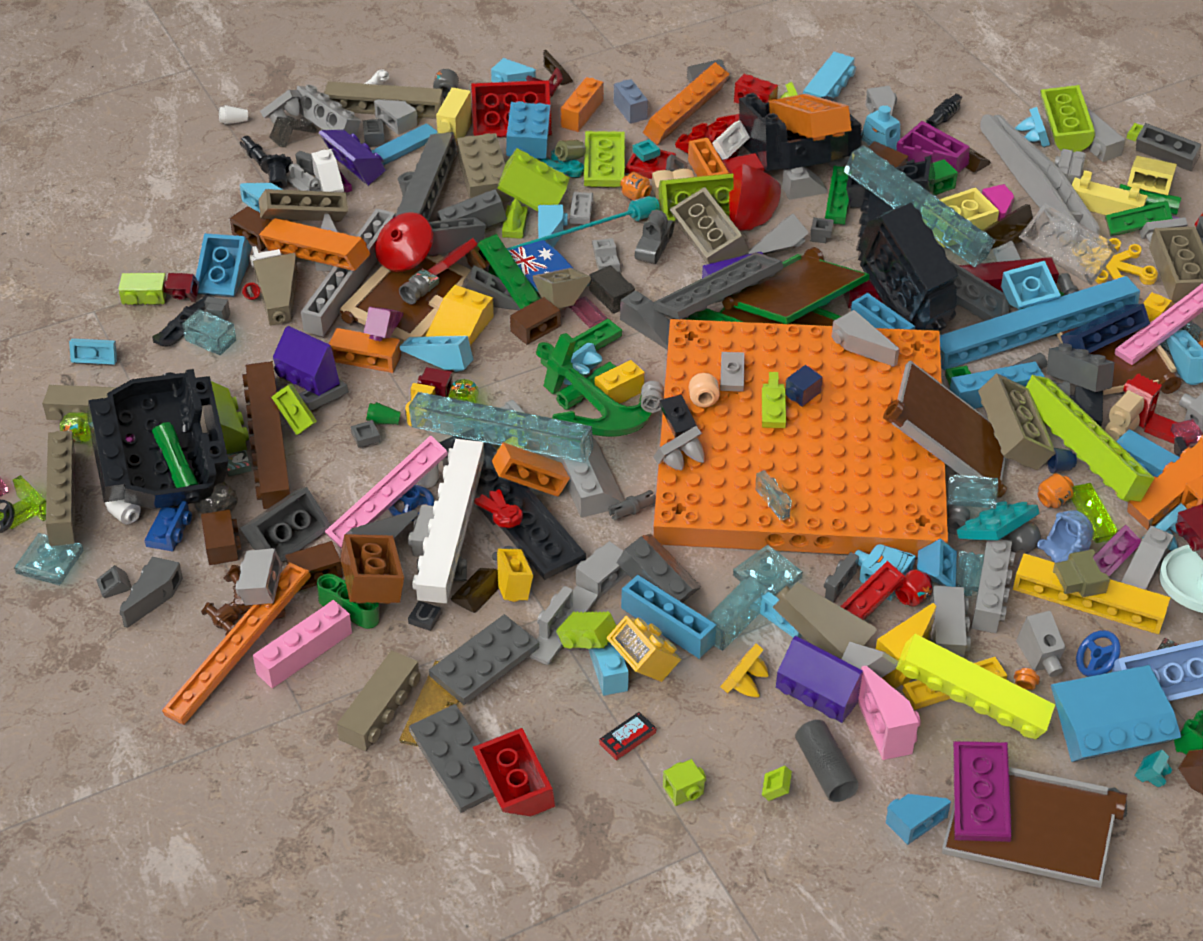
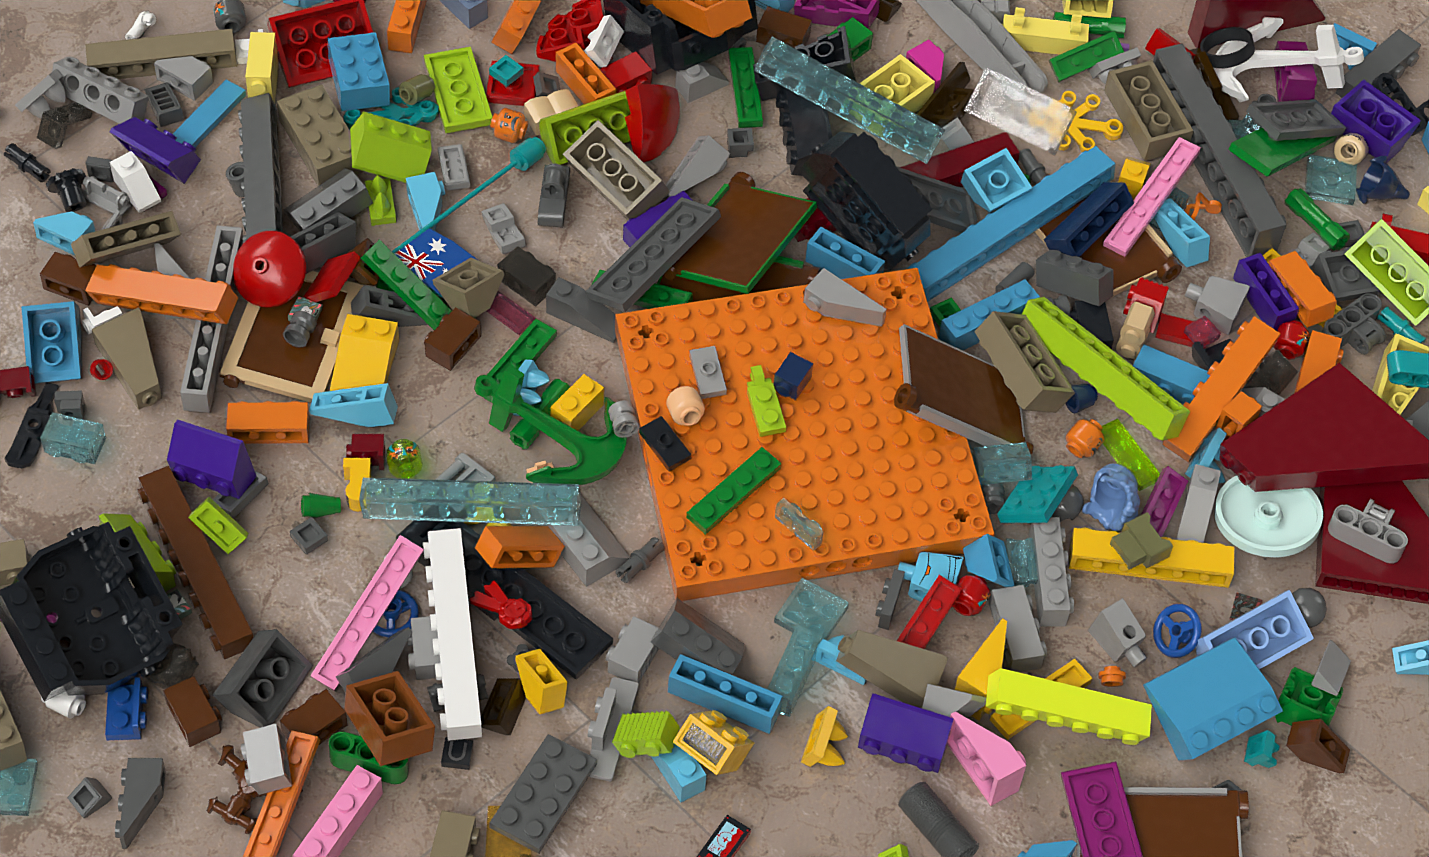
camera: 20 degrees left, 10 degrees up
(169, 443) = (115, 632): green axle -> none
(381, 322) = (282, 386): slope -> none
(686, 442) = (686, 478): light grey tile -> none
(725, 461) = (733, 490): none -> green plate

